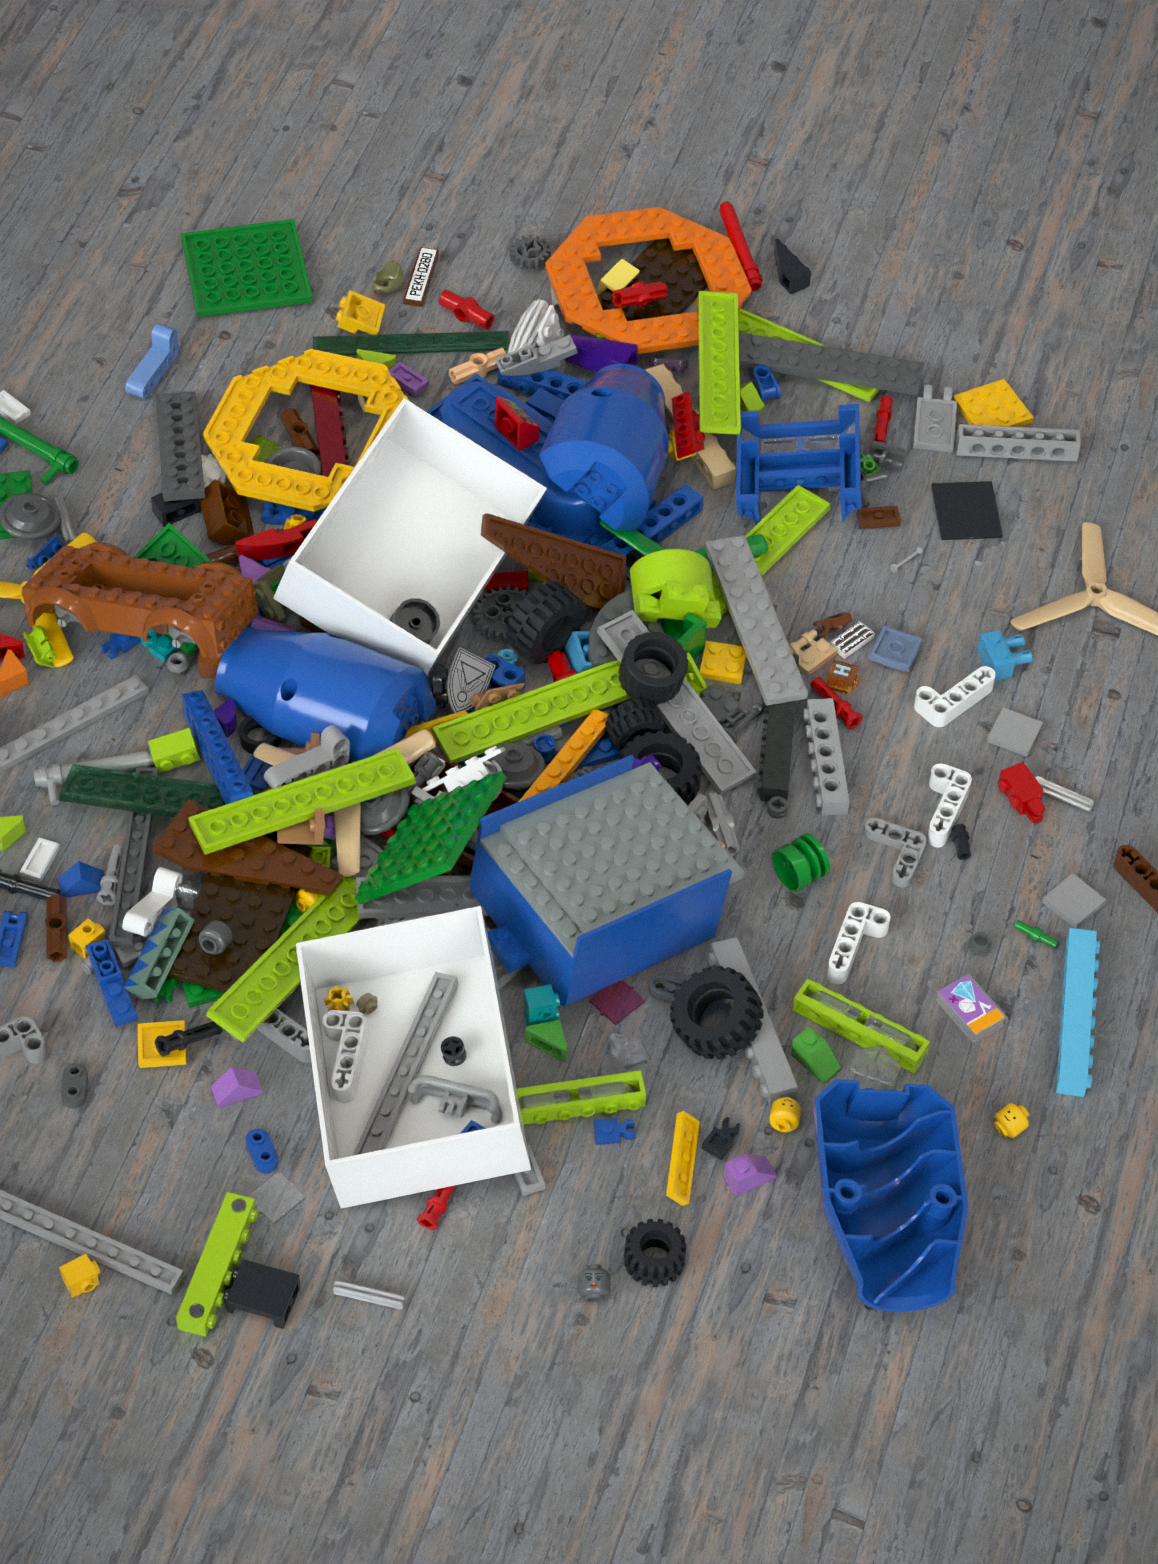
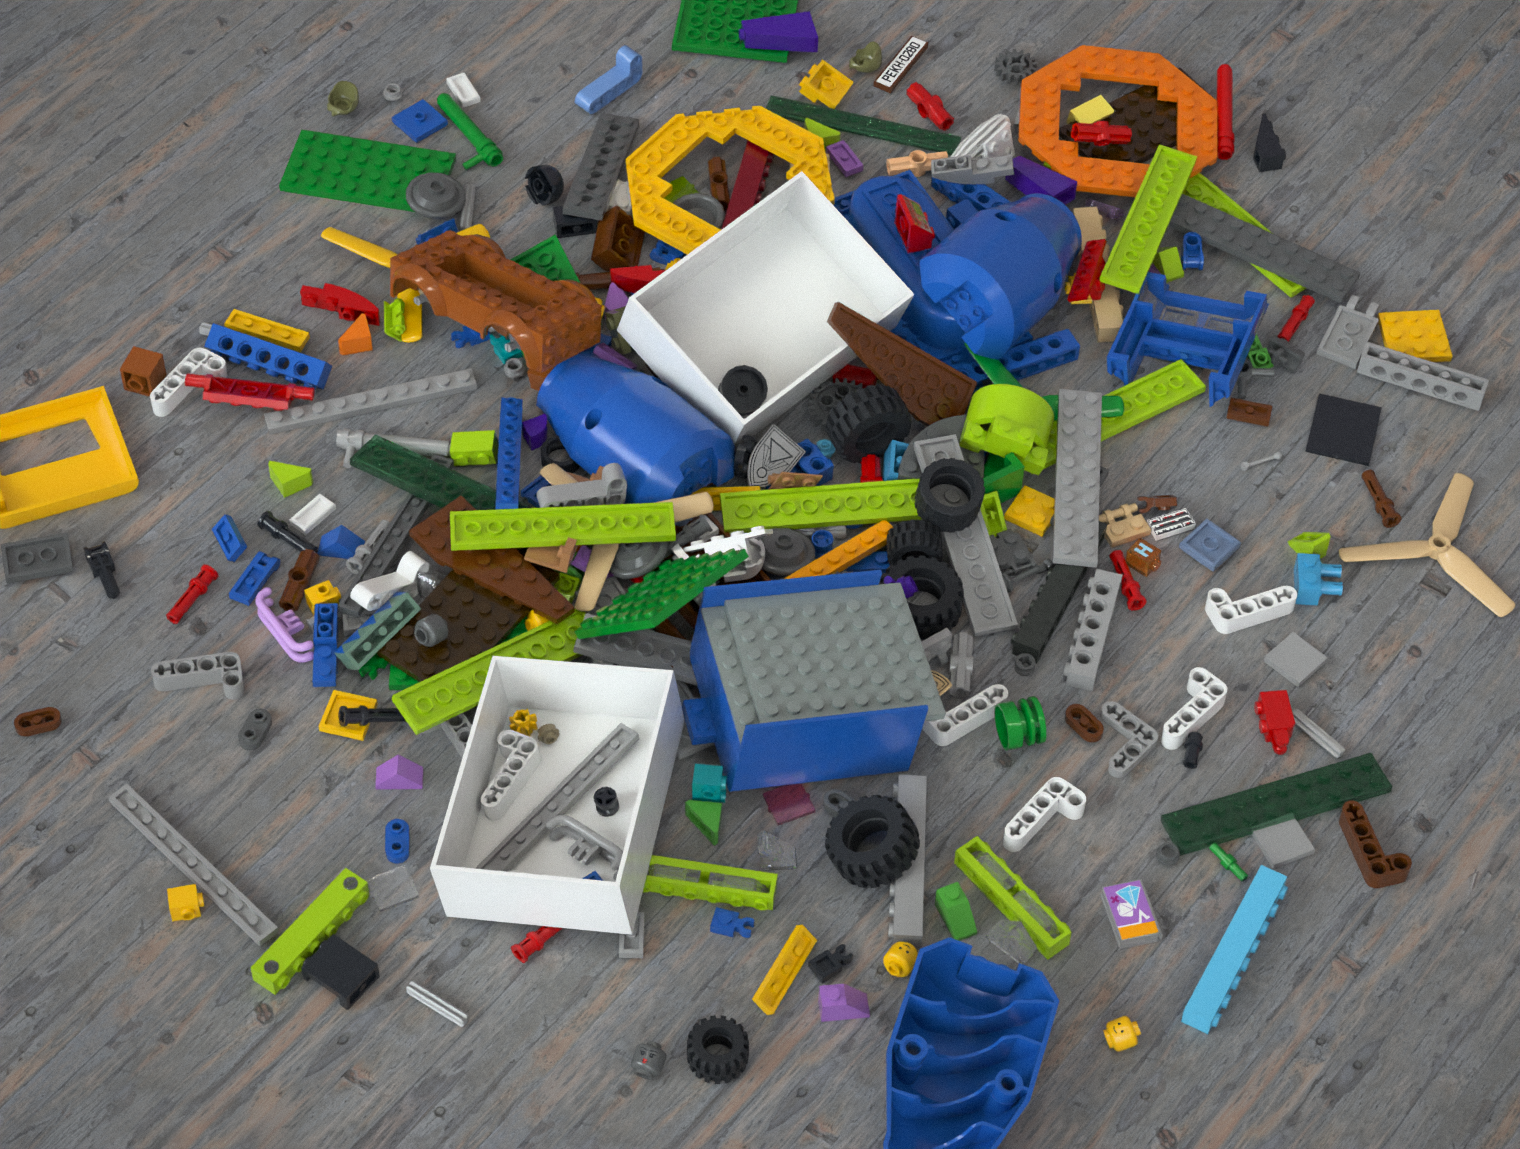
camera: 20 degrees right, 0 degrees up
(61, 979) = (283, 627): none -> lavender piece
(131, 478) = (544, 184): none -> black cylinder
(299, 274) = (780, 32): none -> dark purple slope
(753, 863) = (951, 728): none -> white beam
(855, 845) = (1086, 723): none -> reddish brown plate
(984, 622) = (1311, 543): none -> lime slope
(1032, 569) = (1384, 505): none -> reddish brown pin
(1053, 868) = (1275, 803): none -> clear green plate

